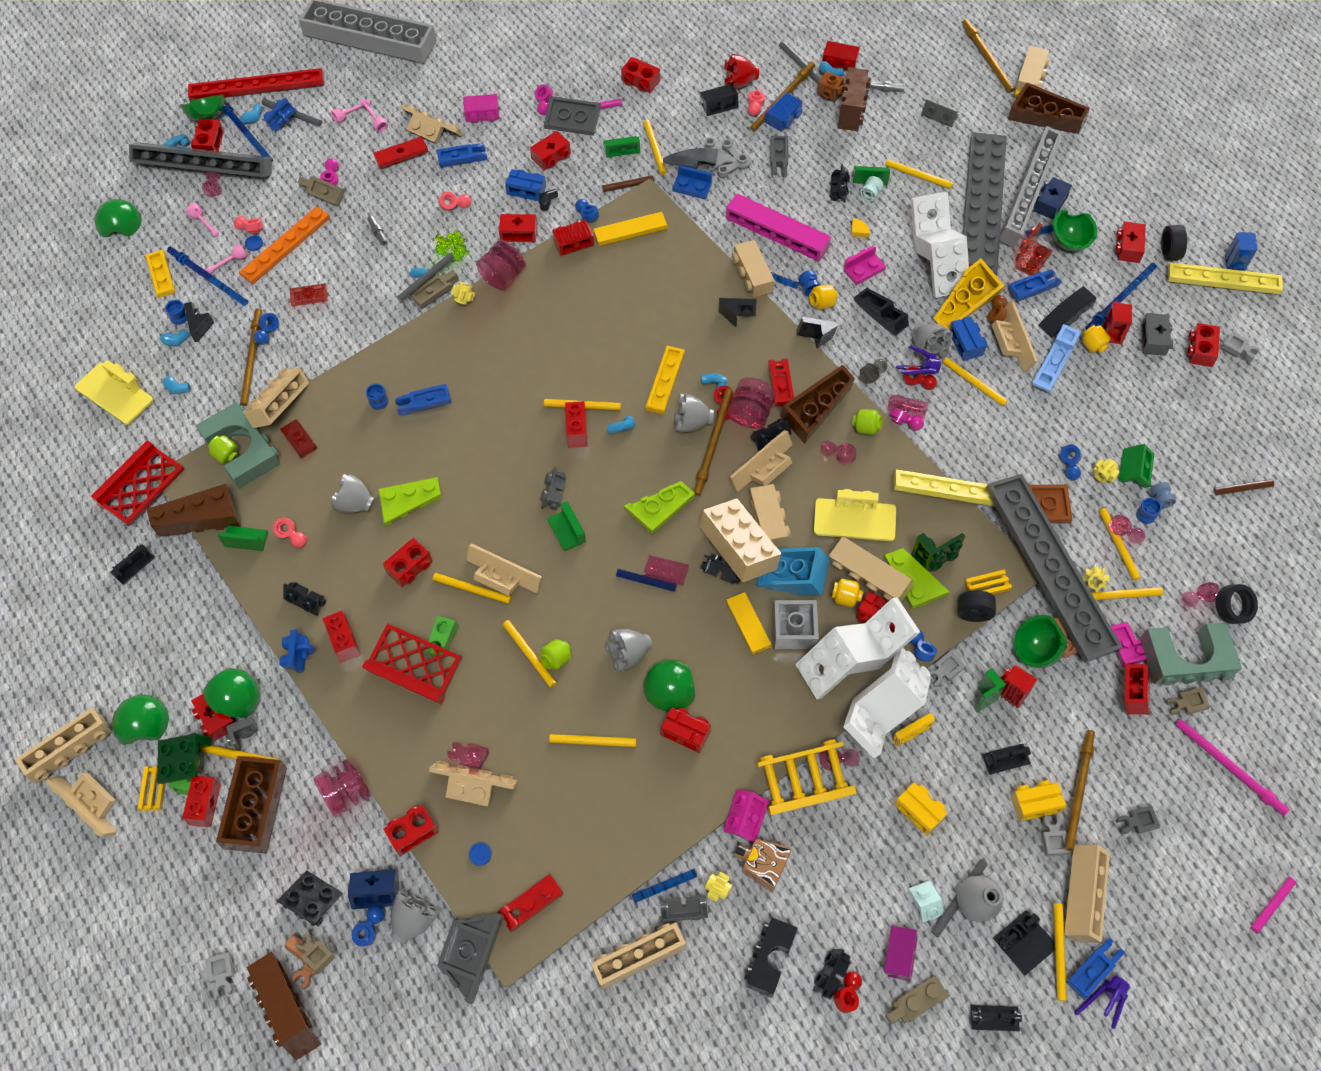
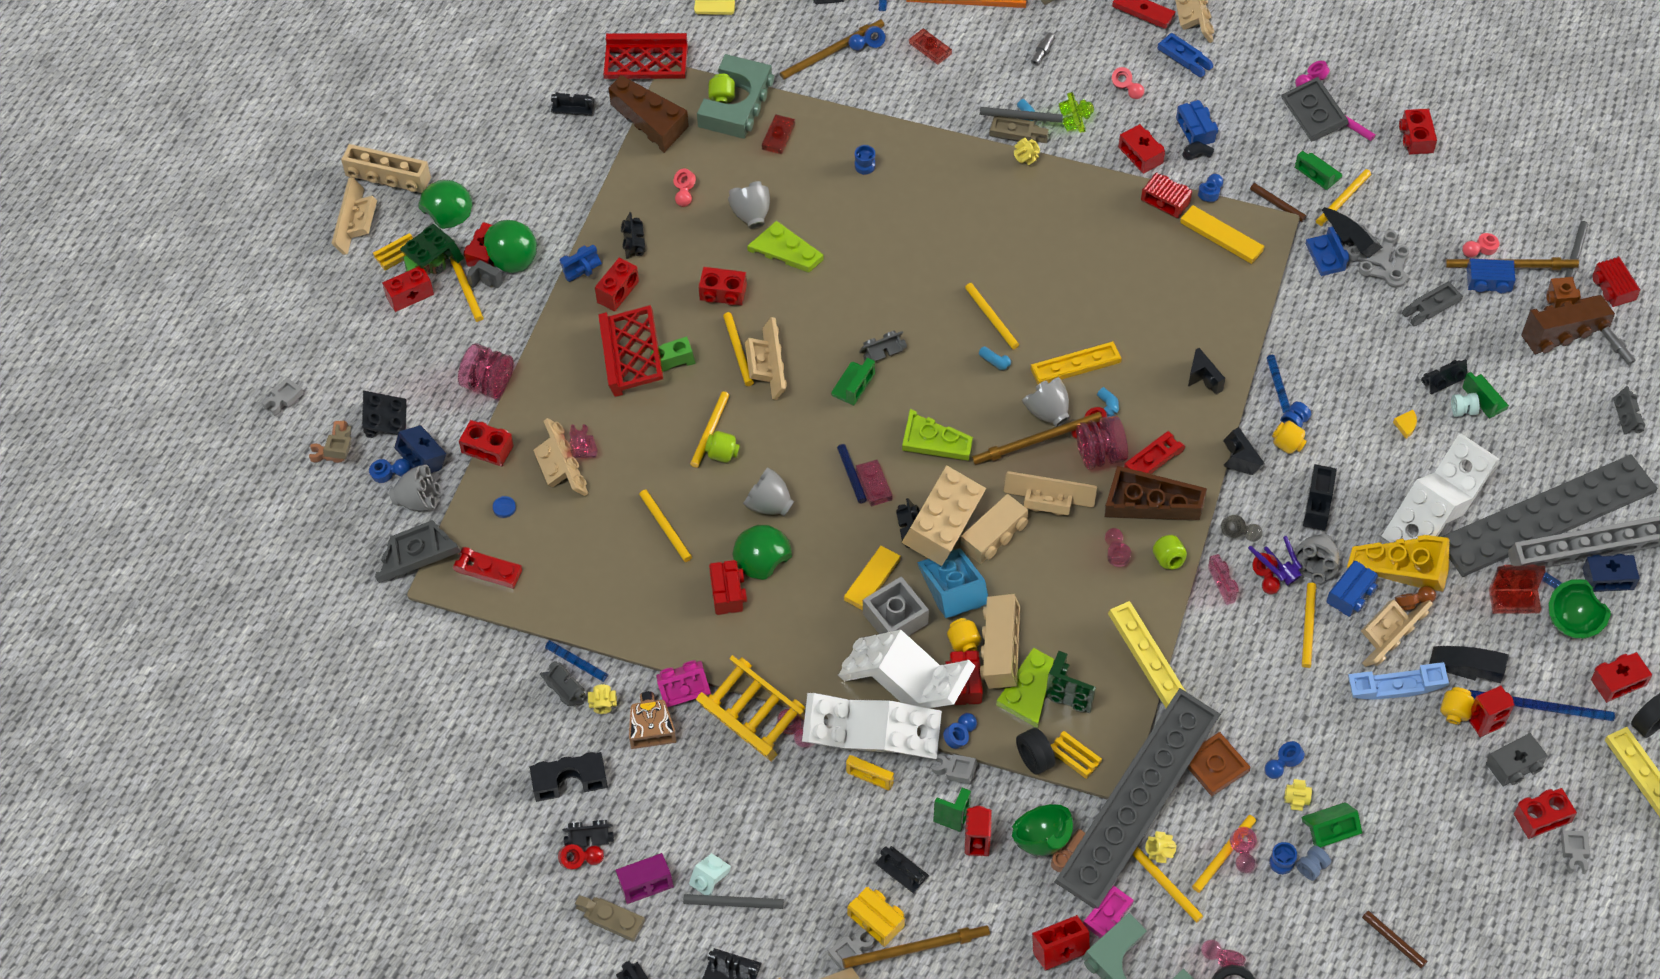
camera: 55 degrees right, 5 degrees down
(175, 388) = (756, 18): dark azure arm -> none
(244, 538) = (654, 160): green panel -> none
(251, 804) = (429, 322): reddish brown brick -> none
(275, 397) = (799, 88): tan brick -> none
(282, 1007) = (283, 451): reddish brown wedge -> none
(423, 399) = (892, 195): blue hinge -> none
(481, 108) = (1253, 34): dark pink brick -> none
(501, 264) = (1079, 158): clear pink wheel -> none
(550, 150) = (1255, 117): red brick -> none
(576, 424) = (963, 321): red brick -> none
(638, 956) = (497, 673): tan brick -> none
(719, 99) = (1452, 213): black hinge -> none
(740, 71) = (1503, 208): red piece -> none
(753, 268) = (1264, 358): tan brick -> none
(764, 436) = (1084, 476): black hinge -> none
(778, 227) = (1339, 353): dark pink brick -> none
(825, 66) = (1586, 283): dark azure arm -> none
(855, 516) = (1054, 601): light yellow bracket -> none
(863, 265) = (1362, 451): dark pink bracket -> none
(915, 422) = (1205, 579): dark pink plate -> none
(917, 173) = (1529, 438): yellow bar -> none
(921, 808) = (794, 820): yellow brick -> none
(979, 898) = (744, 925): light grey piece -> none
(1033, 285) = (1479, 615): blue hinge -> none

